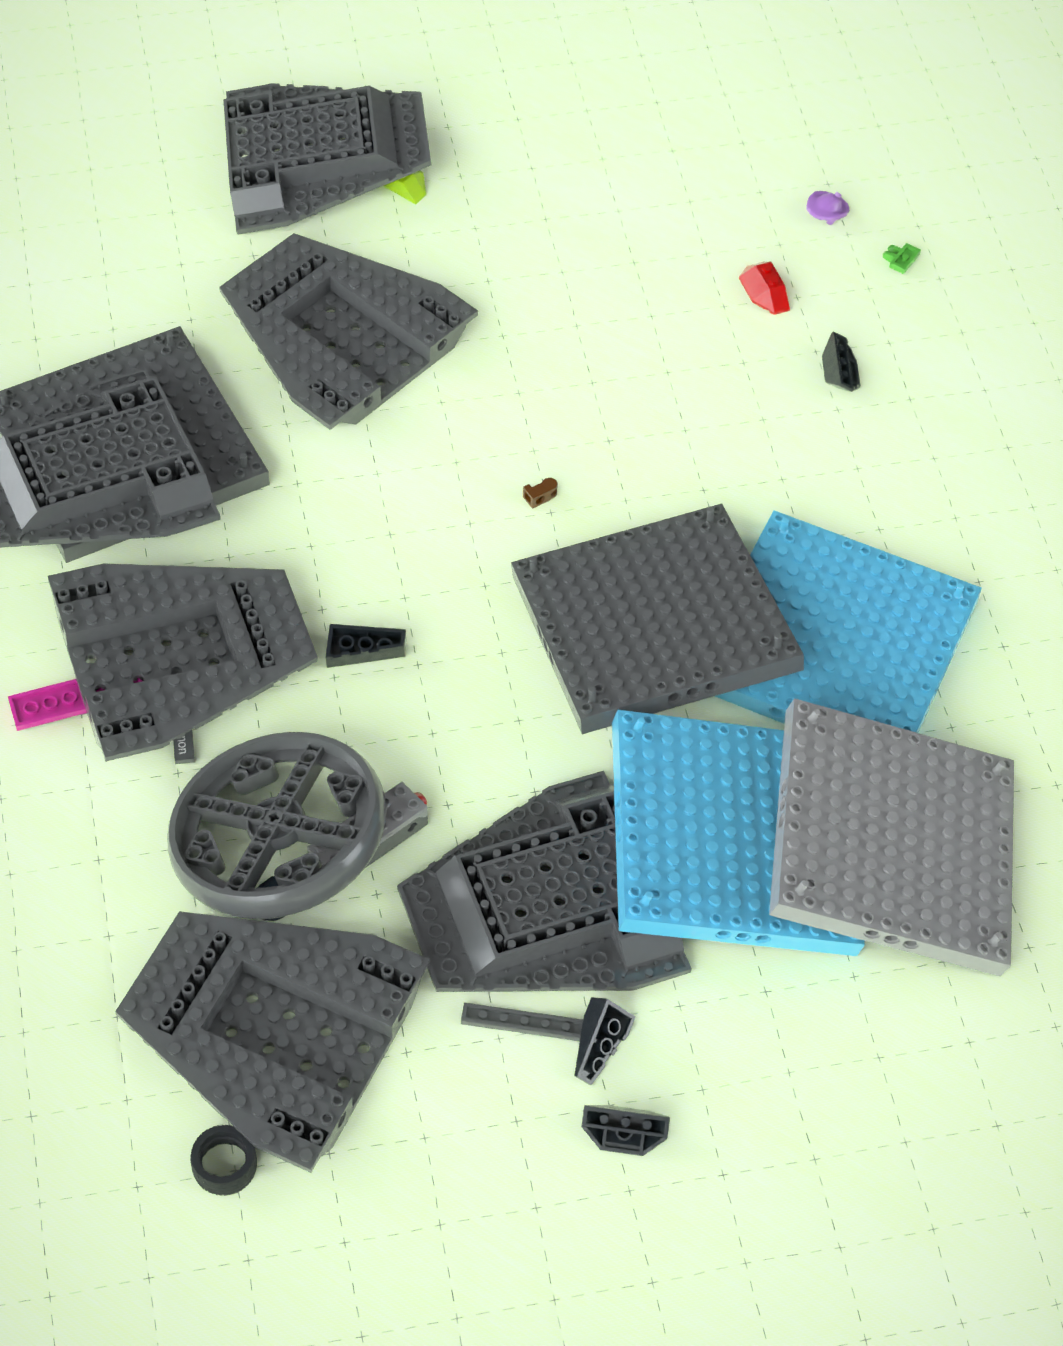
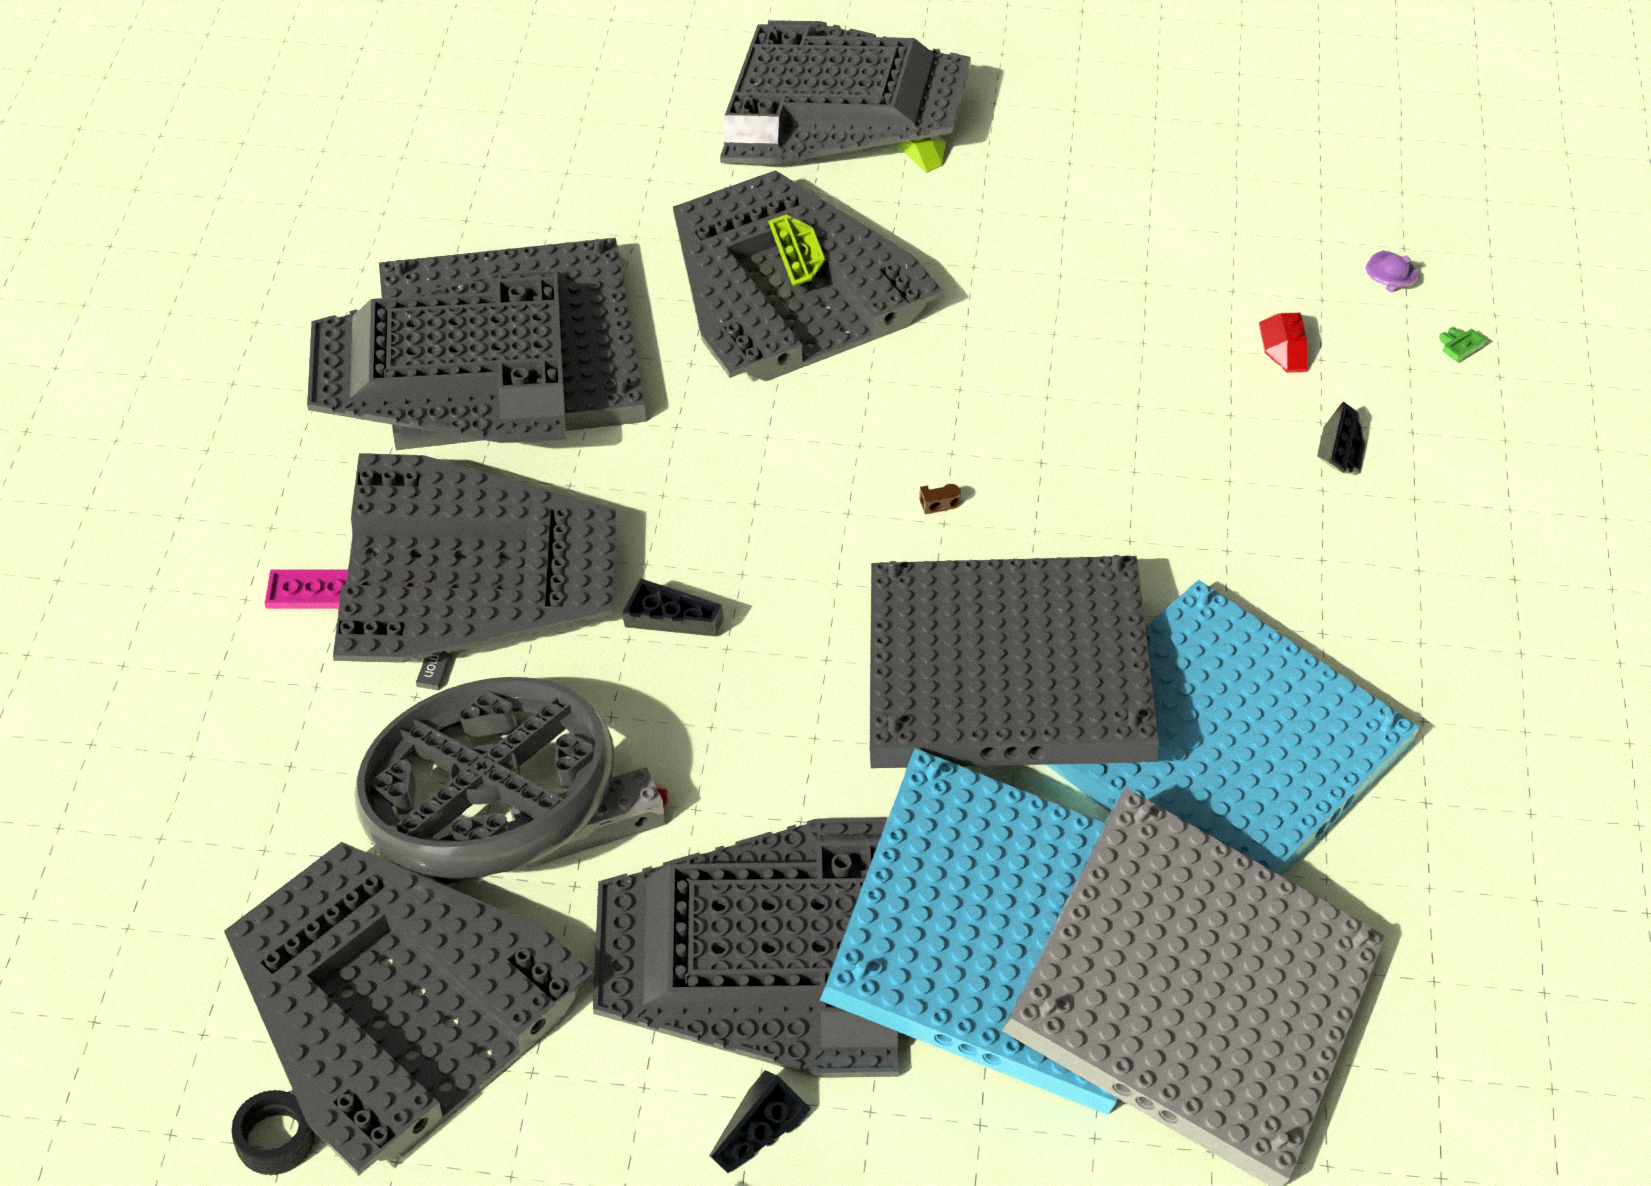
camera: 20 degrees right, 5 degrees down
(343, 302) = (797, 248): none -> lime wedge
(521, 1021) = (675, 1075): dark grey tile -> none

